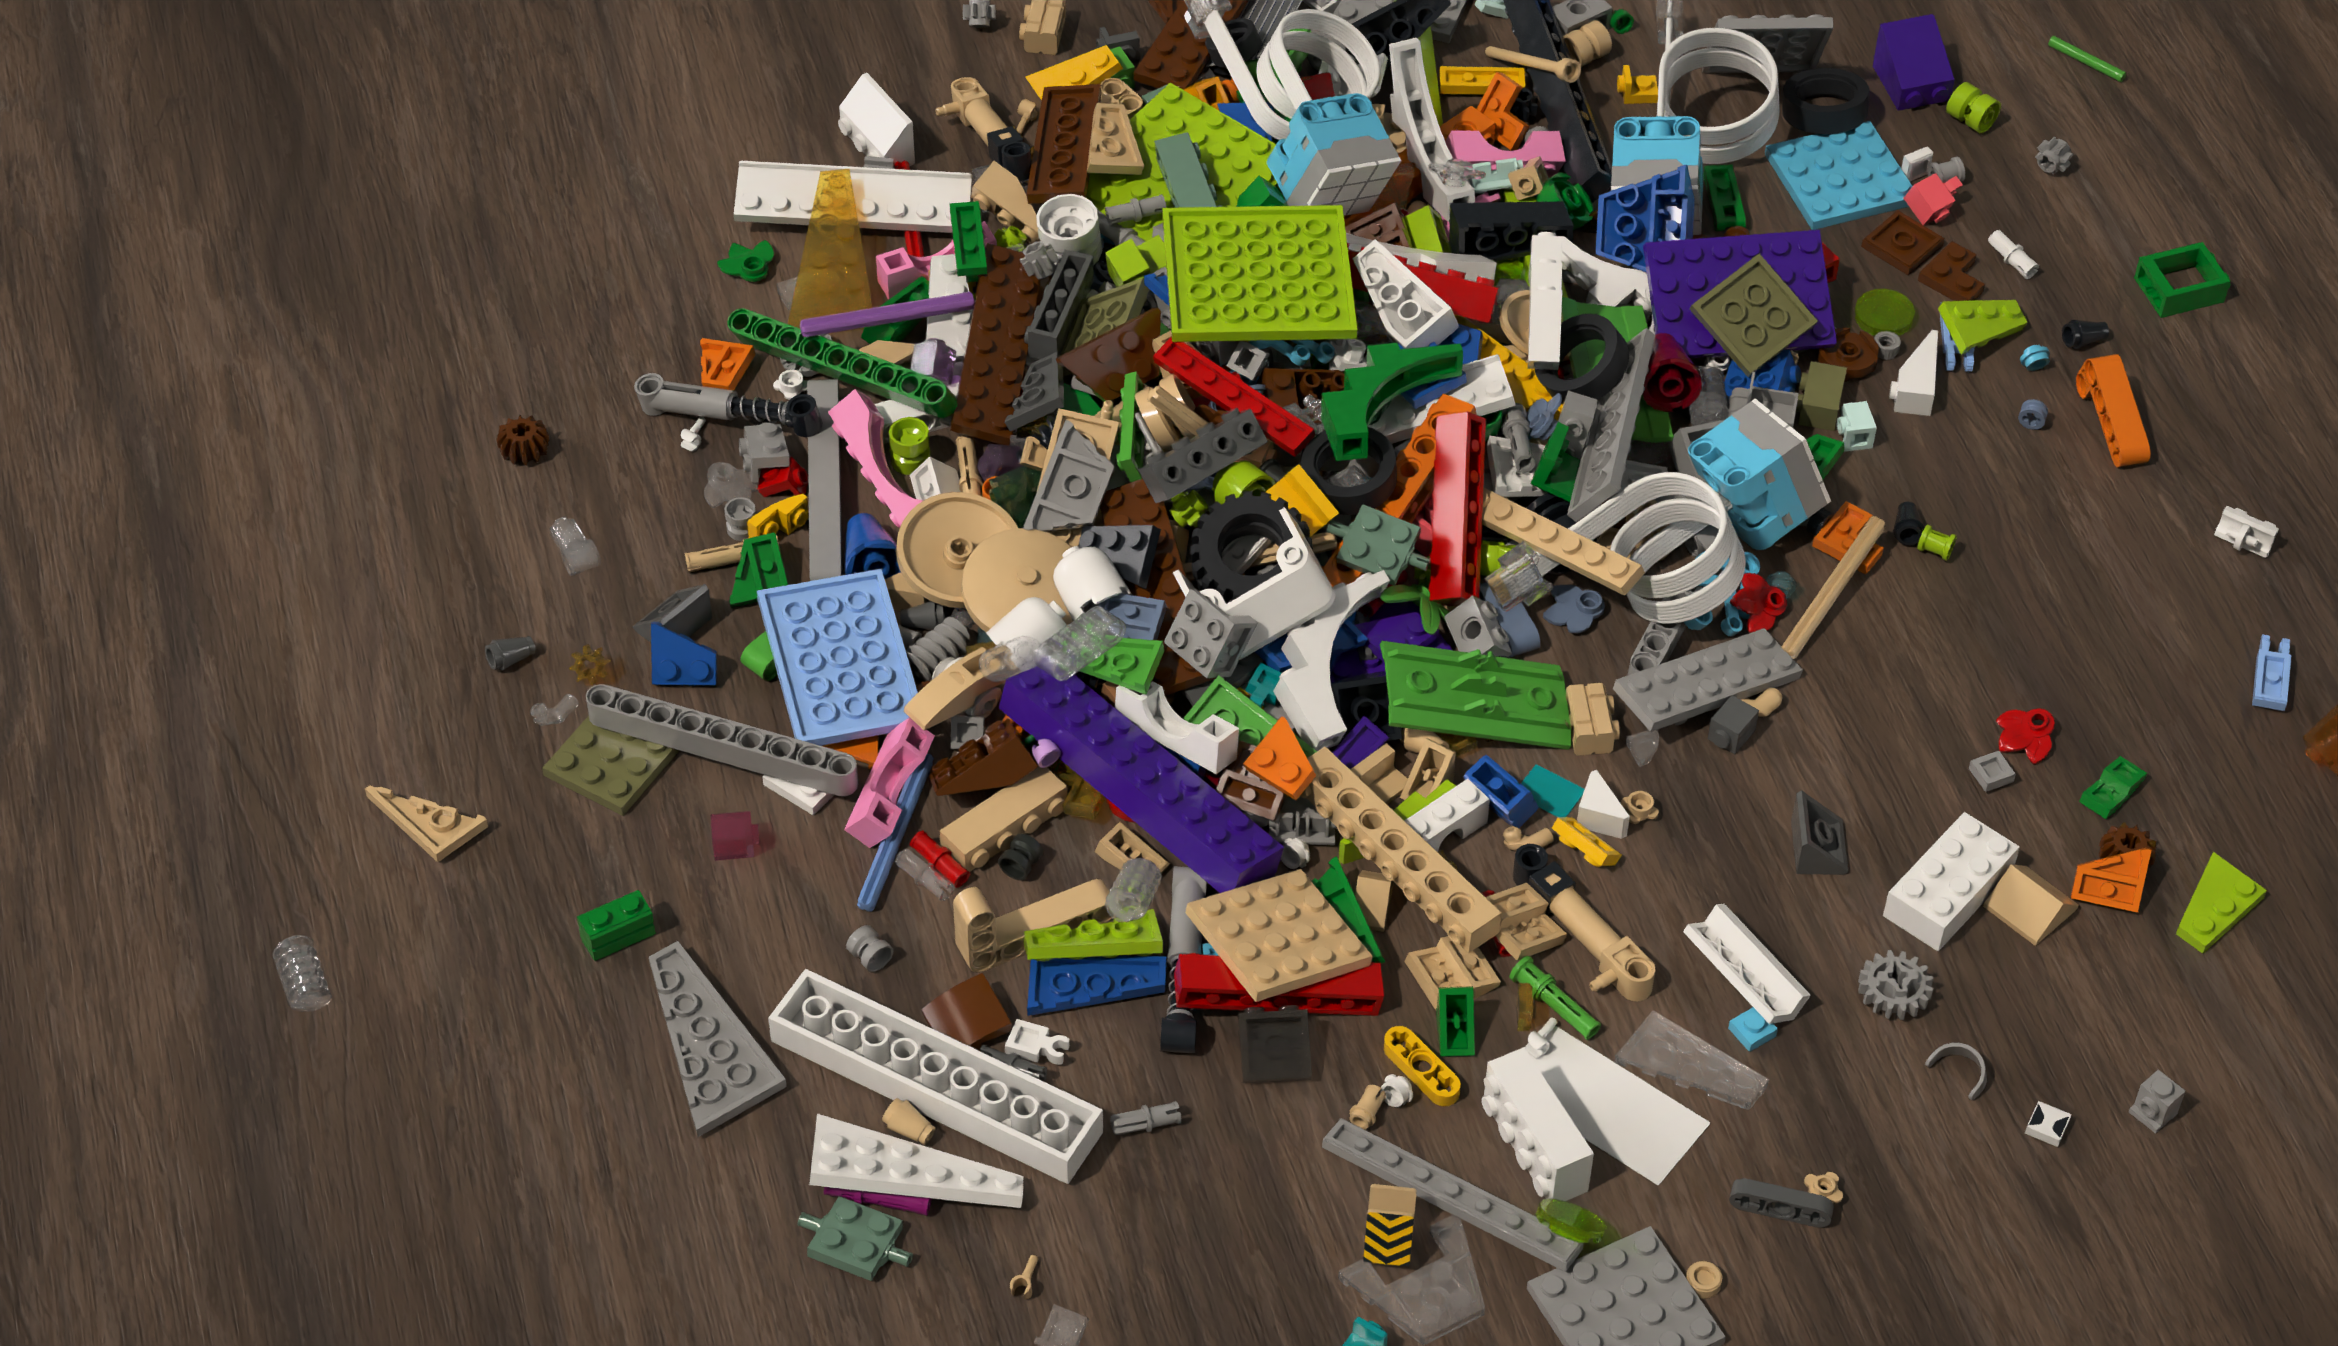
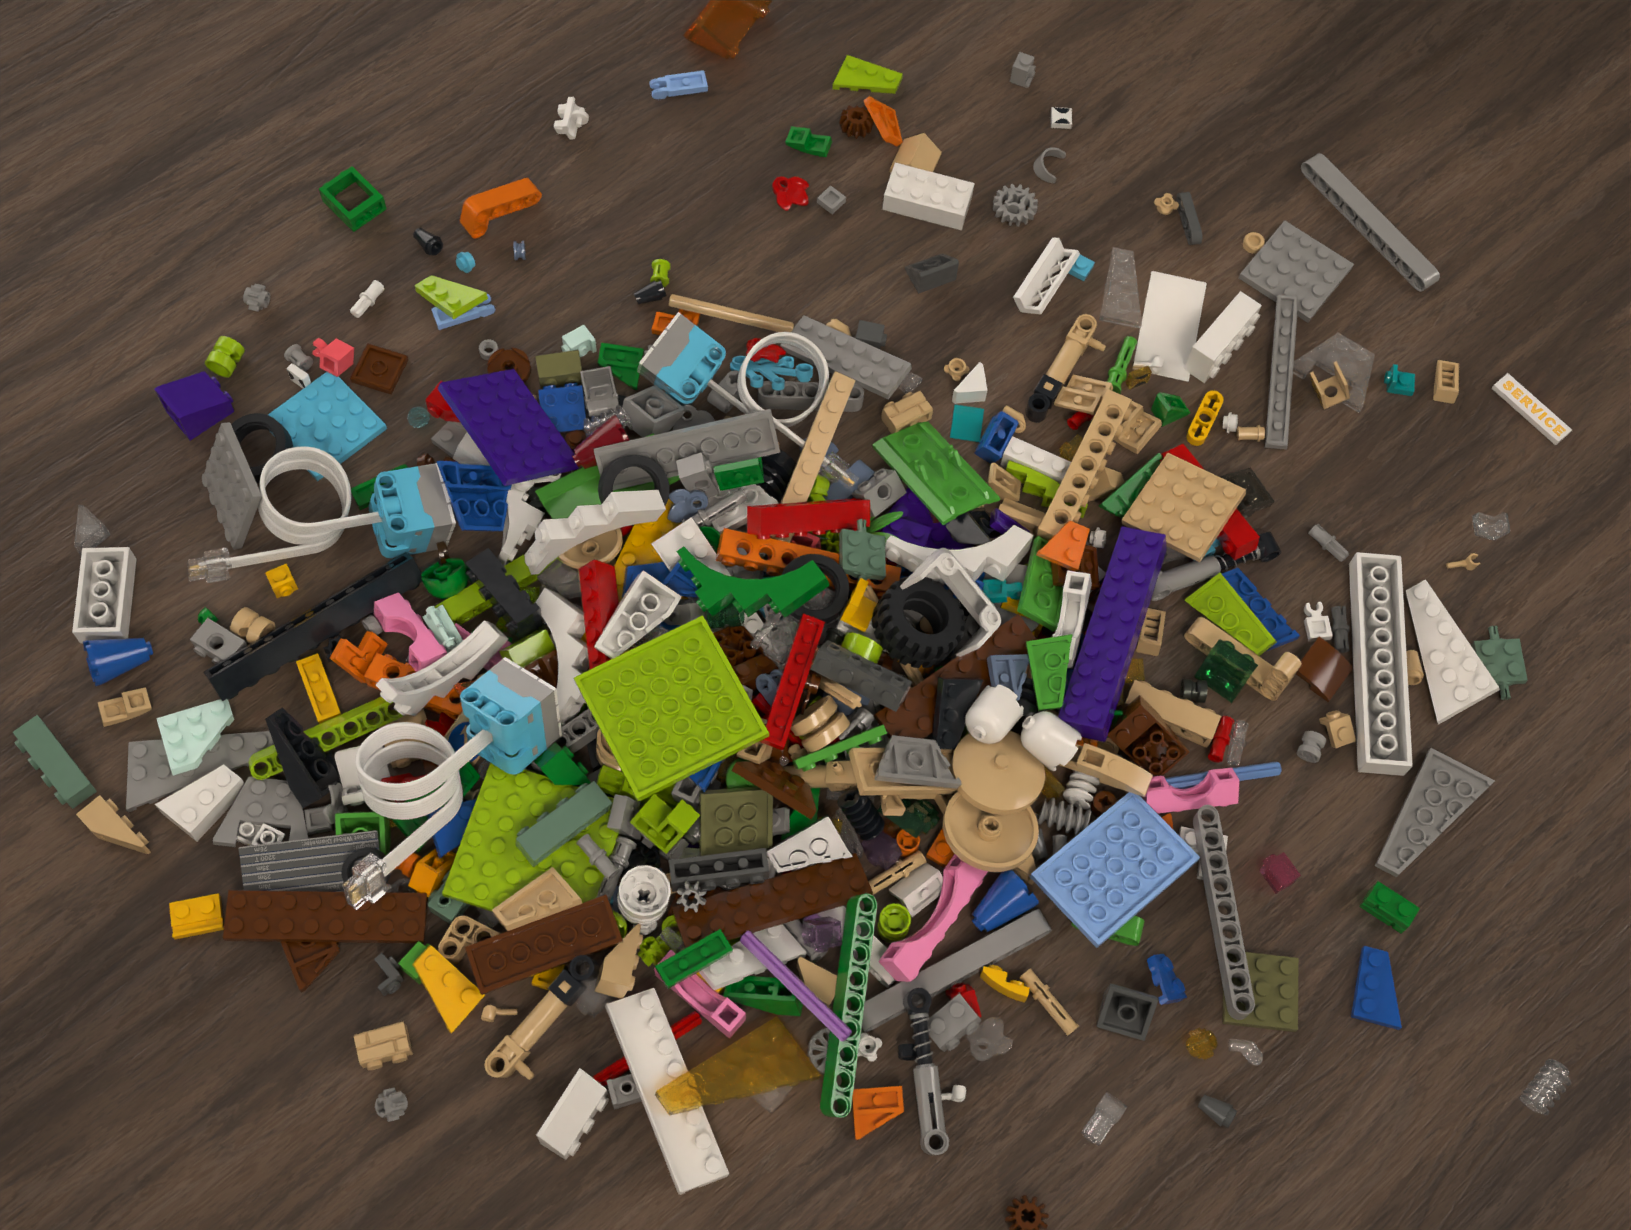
camera: 120 degrees left, 15 degrees up
(431, 826) = (1384, 1077): tan wing -> none
(533, 870) = (1375, 990): none -> blue wing
(737, 514) = (1019, 1006): light grey wheel -> none
(748, 263) = (752, 1153): green plate -> none
(758, 569) = (1061, 970): green wing -> none
(881, 988) = (1339, 728): none -> tan bracket
(1010, 660) = (1088, 731): clear plate -> none
(1018, 888) = (1226, 670): none -> clear green plate
(1045, 753) = (1128, 693): lavender hinge -> none
(1079, 643) = (1057, 690): clear beam -> none
(1133, 890) = (1187, 608): clear piece -> none
(1209, 636) = (1010, 614): light grey bracket -> none
(1456, 172) = (473, 636): clear plate -> none
(1529, 179) = (441, 598): tan bracket -> none
(1565, 69) = (317, 609): tan piece -> none
(1571, 1221) = (1272, 302): clear neon green tile -> none
(1576, 835) = (1001, 385): yellow plate -> none
(1753, 315) = (531, 407): olive plate -> none
(1782, 581) = (740, 345): clear light blue plate -> none
(1884, 311) = (456, 360): clear neon green tile -> none
(1916, 379) = (517, 320): white slope -> none
(1948, 275) = (399, 336): reddish brown plate -> none
(2087, 59) = (132, 309): bright green bar -> none

